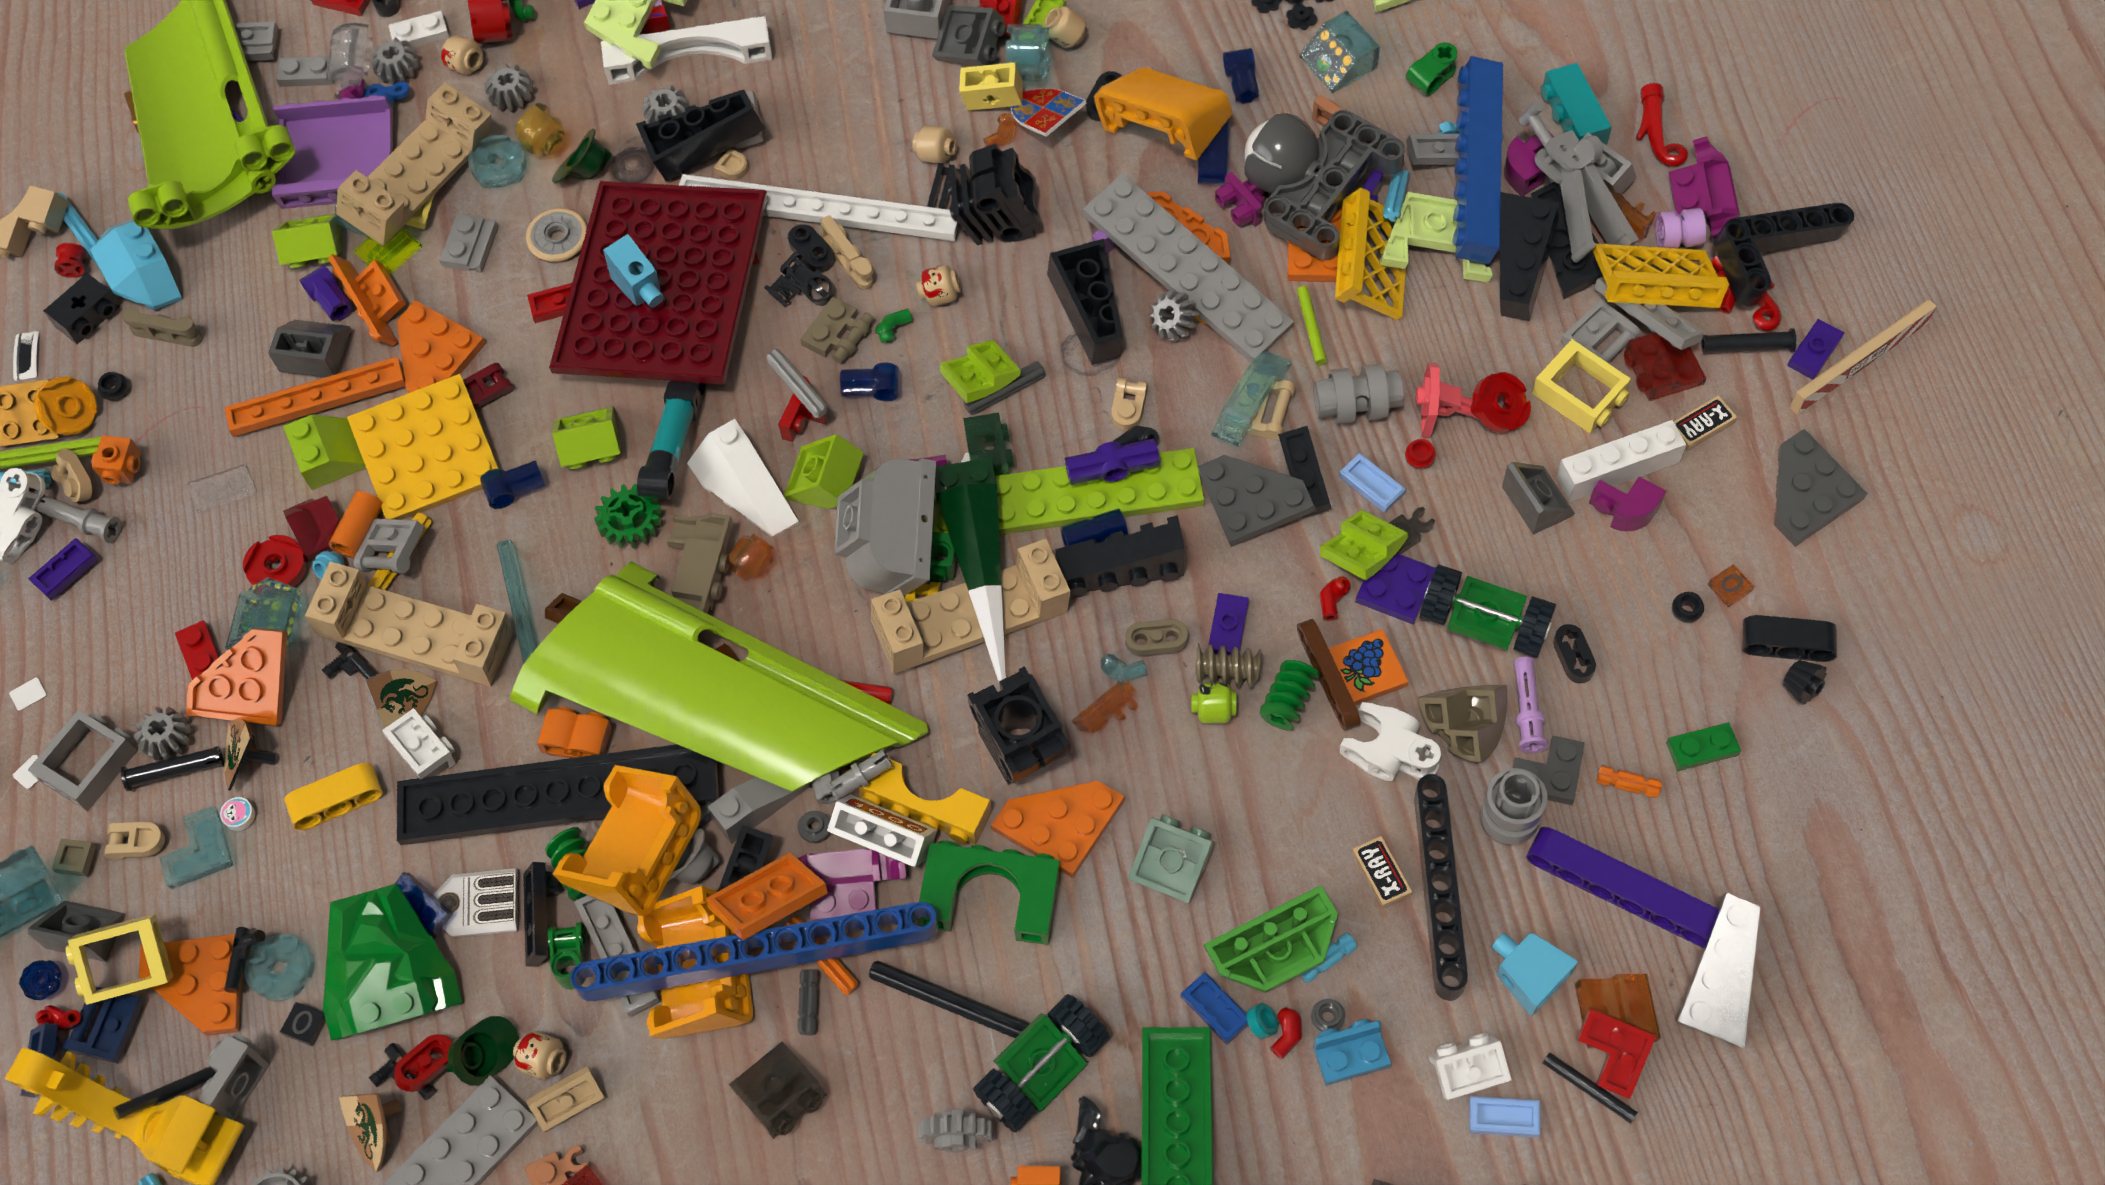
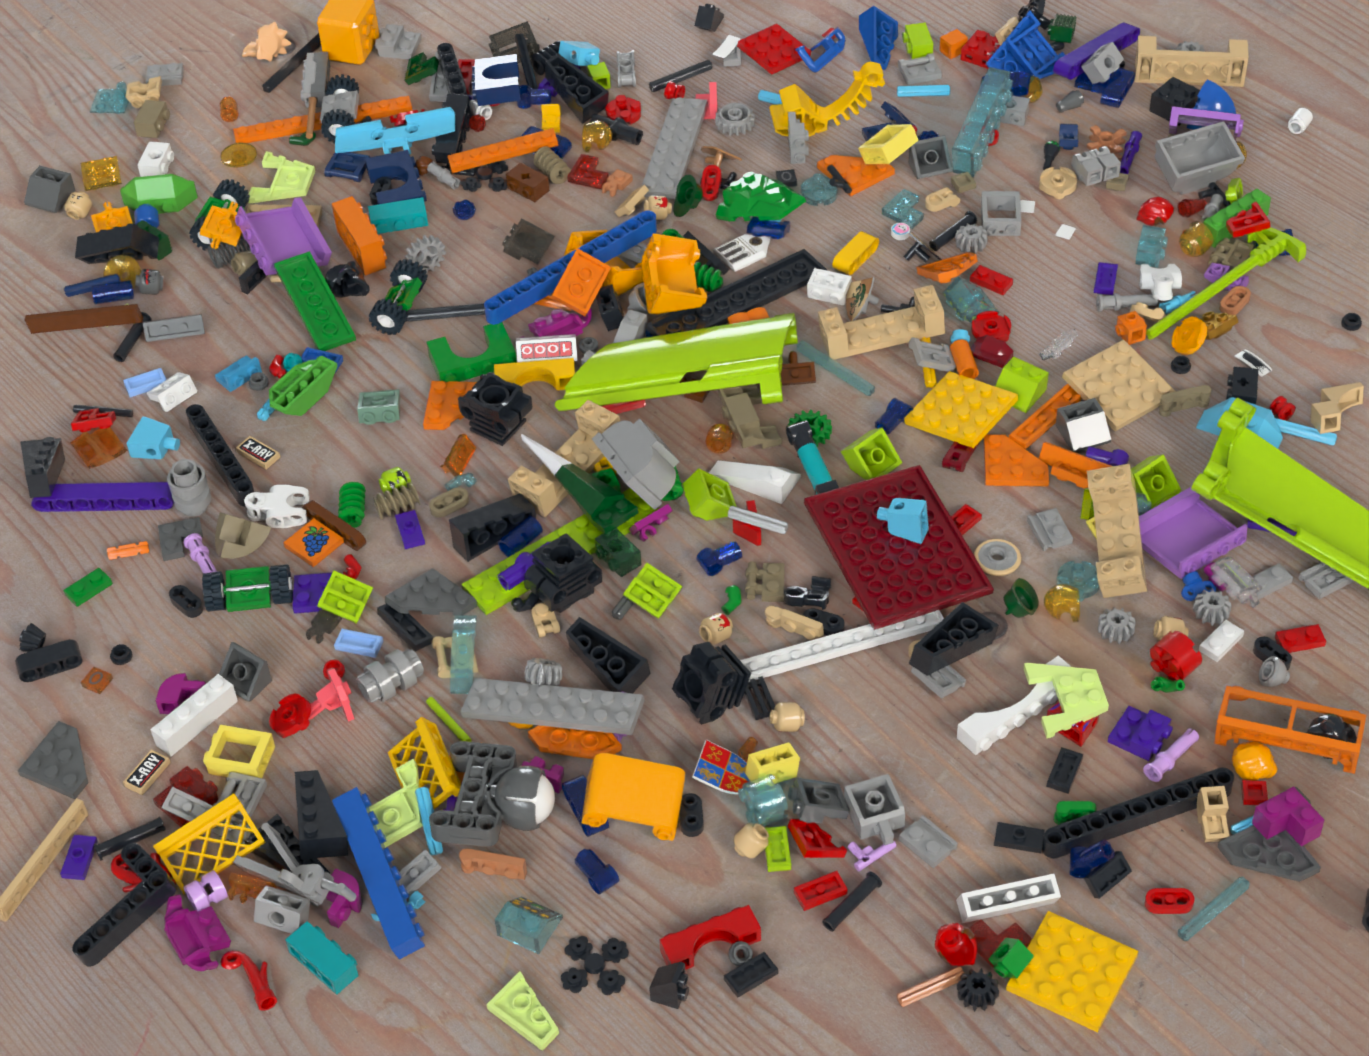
camera: 150 degrees right, 15 degrees down
(163, 1093) = (823, 126): black bar -> none
(211, 387) = (1120, 383): none -> tan plate
(663, 102) = (995, 659): light grey gear -> none
(860, 774) = (572, 356): light grey pin -> none
(1075, 418) = (562, 573): none -> black piece
(1433, 68) = (448, 941): green piece -> none

